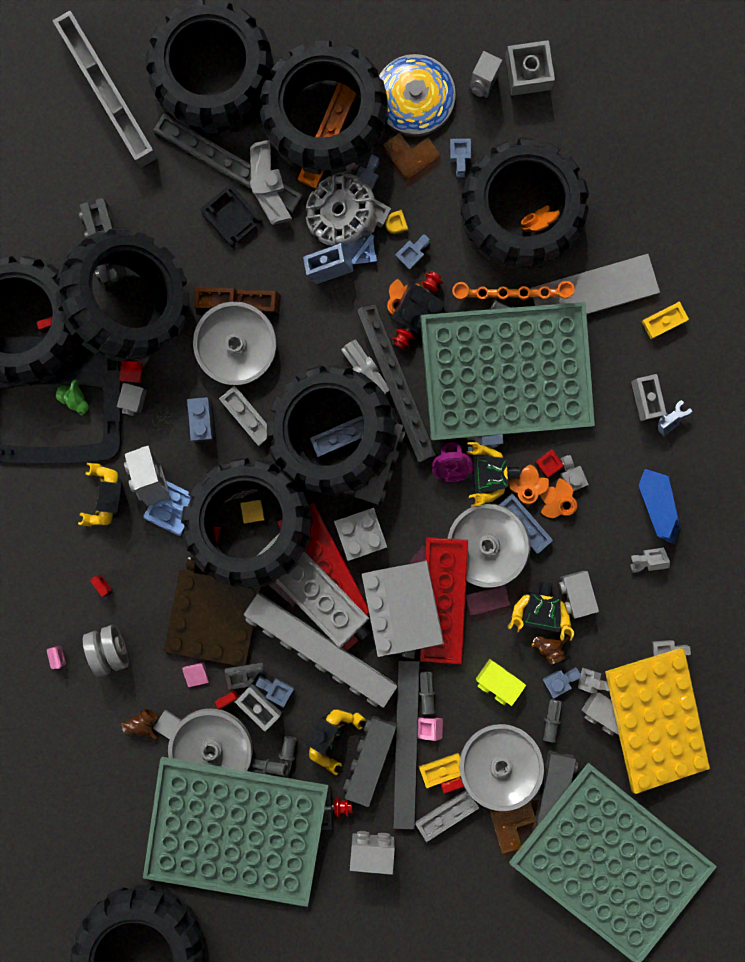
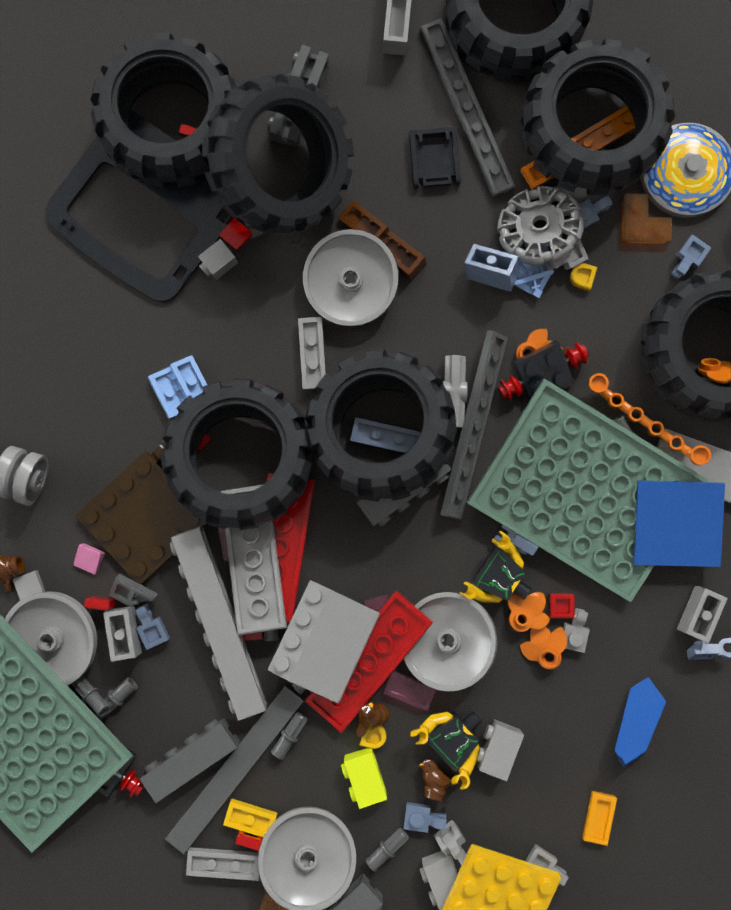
camera: 35 degrees right, 0 degrees up
(72, 397) = (164, 218): bright green animal -> none
(101, 585) = (62, 412): red tile -> none
(107, 496) = (127, 333): torso -> none
(146, 476) = (177, 341): brick -> none
(201, 419) = (267, 326): sand blue brick -> none
(252, 511) = (252, 446): yellow tile -> none
(266, 183) = (490, 151): light grey plate -> none
(327, 735) = (167, 707): torso -> none
(360, 534) = (336, 542): light grey brick -> none
(372, 853) = (127, 849): light grey brick -> none
(411, 253) = (576, 314): sand blue plate -> none
(429, 728) = (267, 770): bright pink slope -> none
(452, 465) = (469, 541): magenta tile -> none
(473, 637) = (371, 717): none -> reddish brown animal
(485, 650) = (374, 739): none -> yellow tile
(538, 537) = (501, 668): sand blue plate -> none
(587, 347) = (679, 523): none -> blue piece
(653, 559) = (594, 768): light grey plate -> none
(682, 591) = (599, 818): none -> light orange tile

